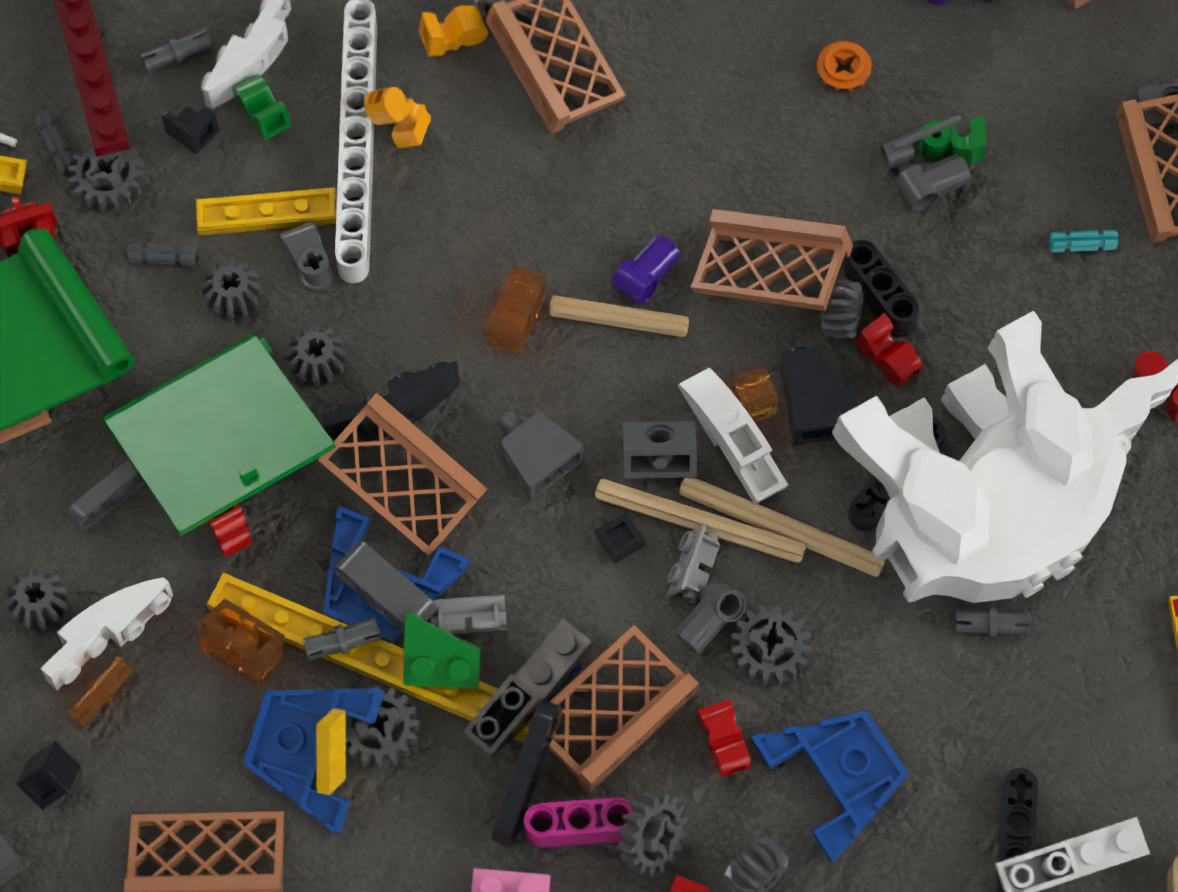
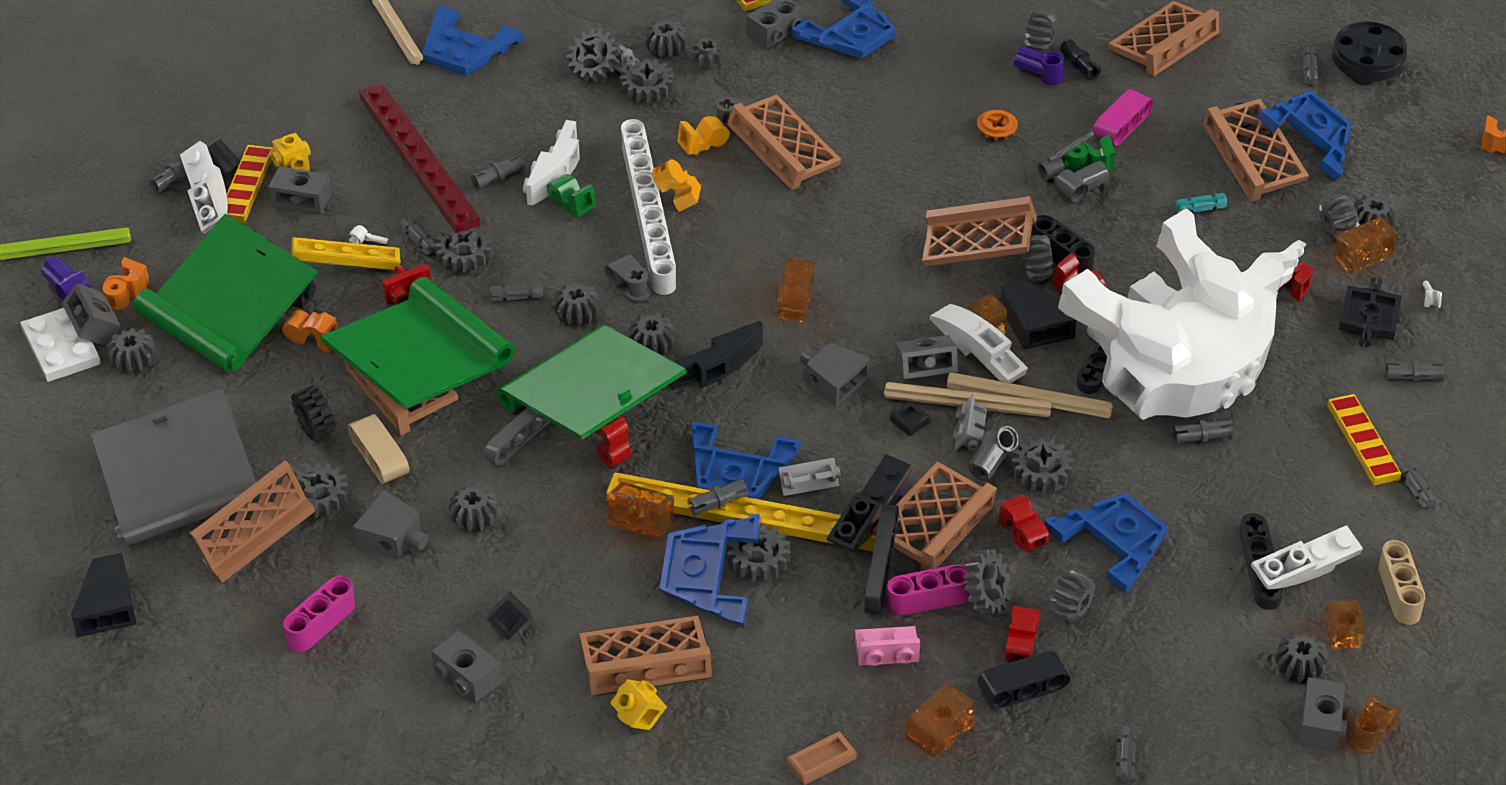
camera: 10 degrees left, 20 degrees down
(100, 692) = (536, 559): clear orange pin -> none
(114, 617) = (533, 512): white slope -> none
(192, 128) = (522, 216): black panel -> none
(266, 211) = (587, 258): yellow tile -> none
(331, 751) = (728, 564): yellow tile -> none
(382, 585) = (743, 461): dark grey beam -> none
(424, 451) = (745, 371): nougat fence -> none
(438, 657) = (795, 494): green wing -> none
(619, 316) = (872, 287): tan axle -> none
(641, 276) = (884, 259): dark purple piece -> none
(1013, 80) = (1123, 116): none -> dark pink beam

